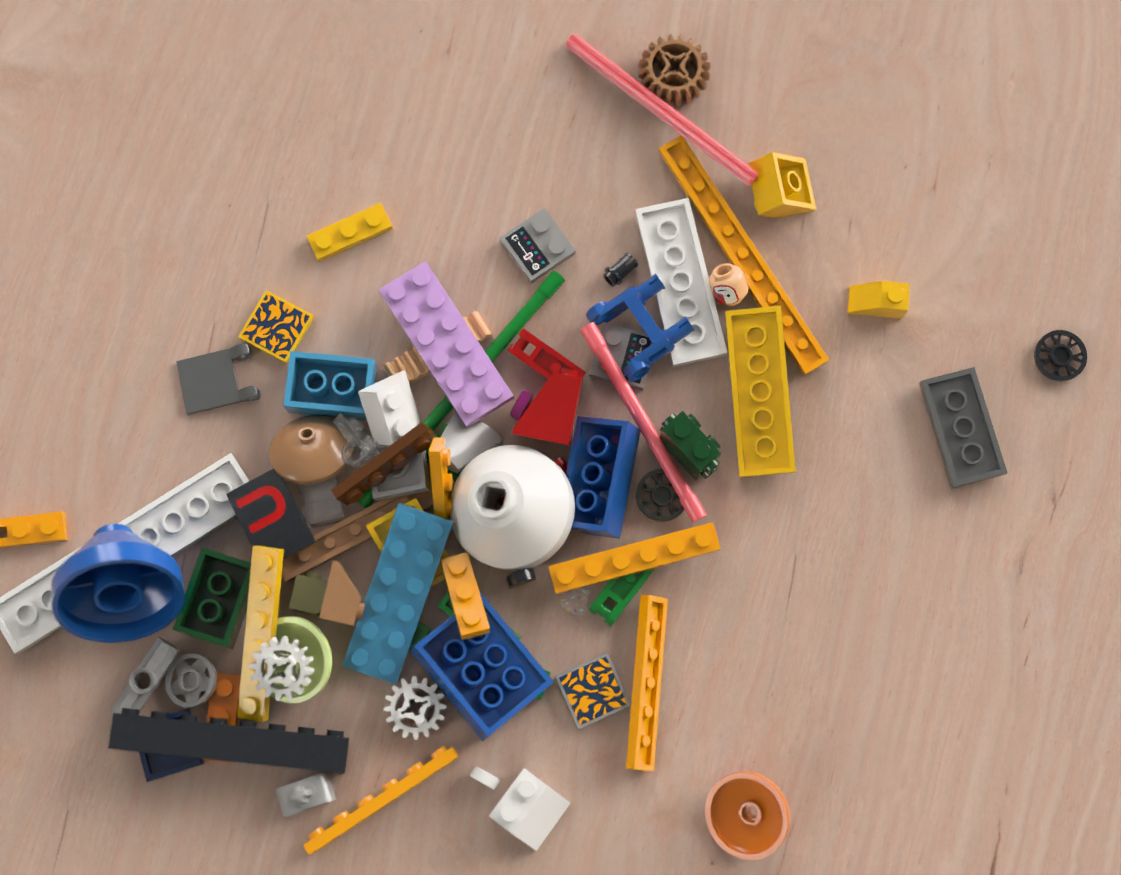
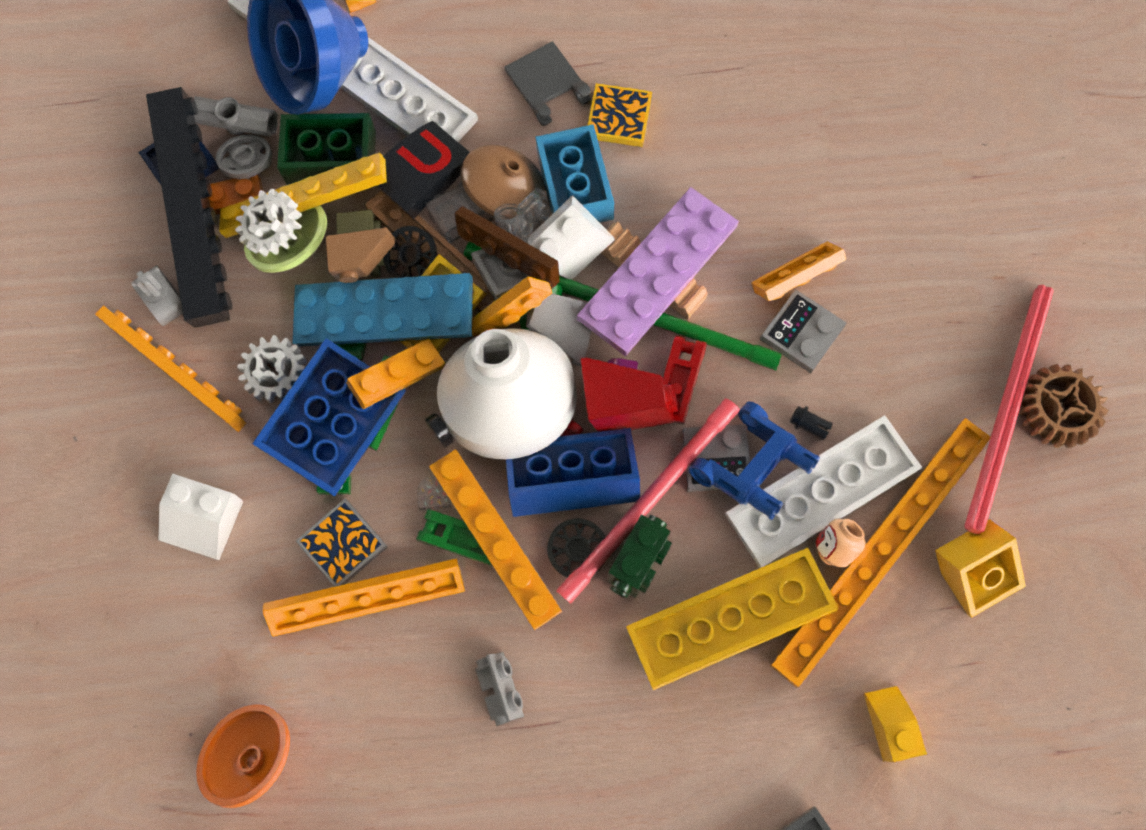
camera: 75 degrees right, 5 degrees down
(349, 232) = (742, 148): yellow plate -> none
(351, 552) = (410, 253): none -> black wheel
(484, 777) = (218, 461): white tile -> none
(485, 229) = (798, 271): none -> light orange plate
(745, 592) = (496, 673): none -> light grey hinge

